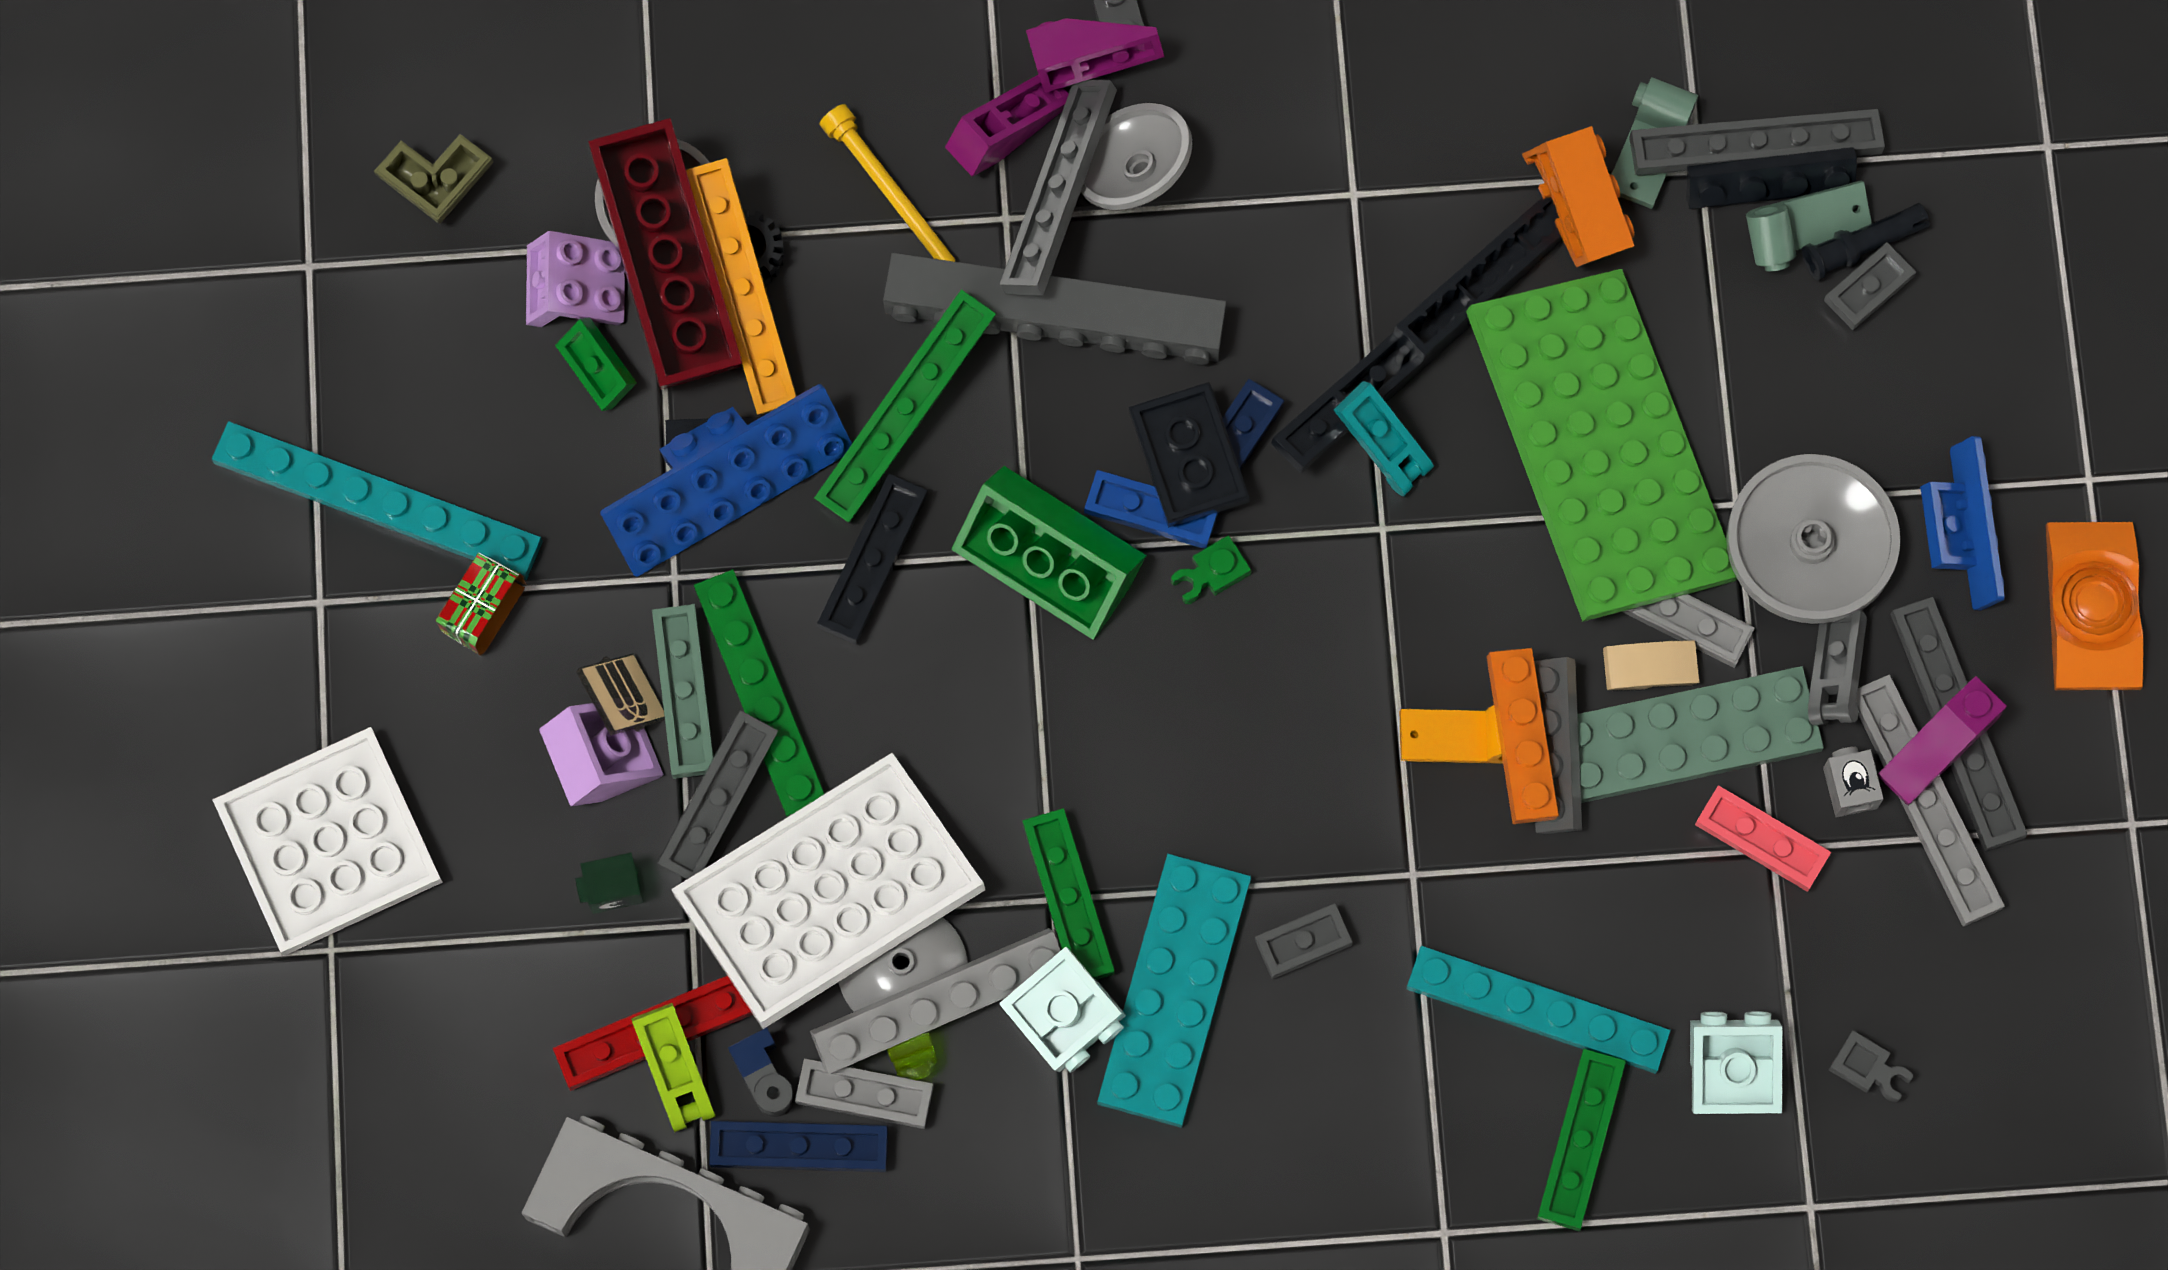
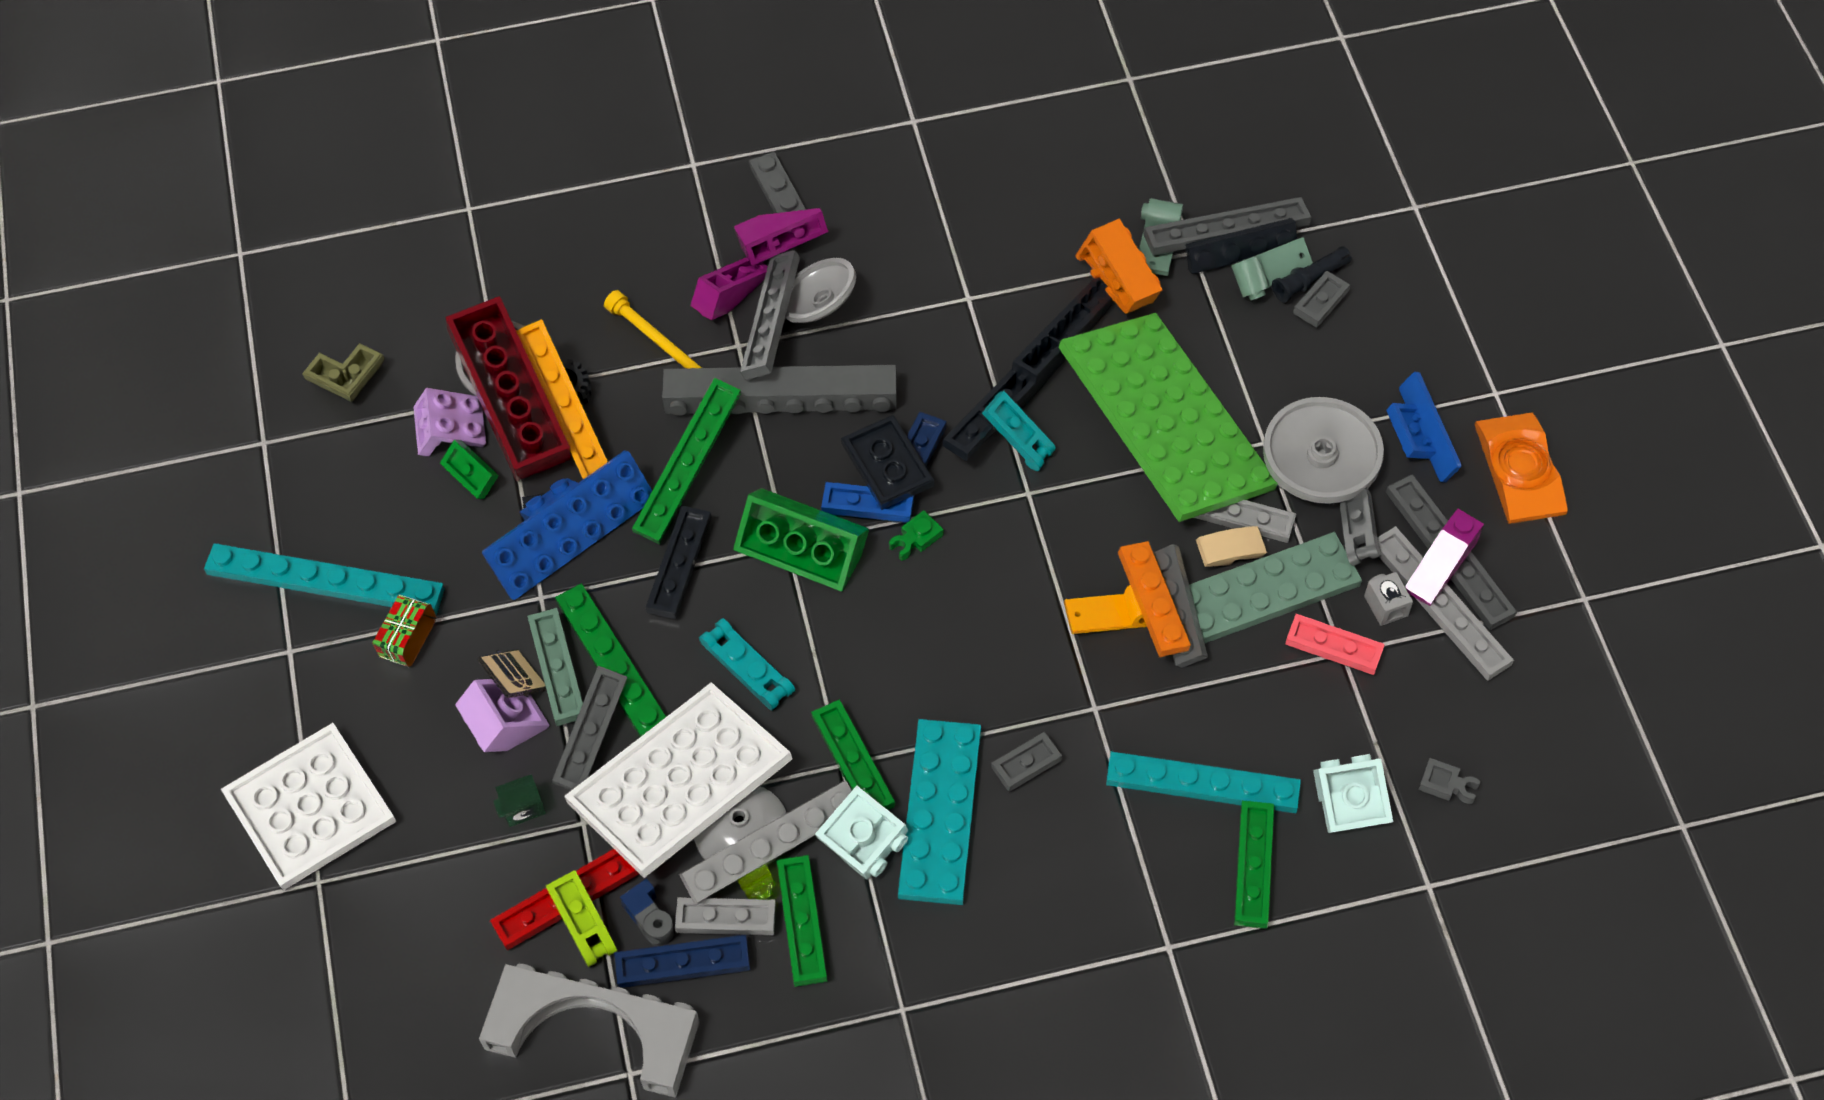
camera: 10 degrees left, 15 degrees down
(945, 730) = (746, 664): none -> teal plate
(964, 1116) = (801, 921): none -> green plate

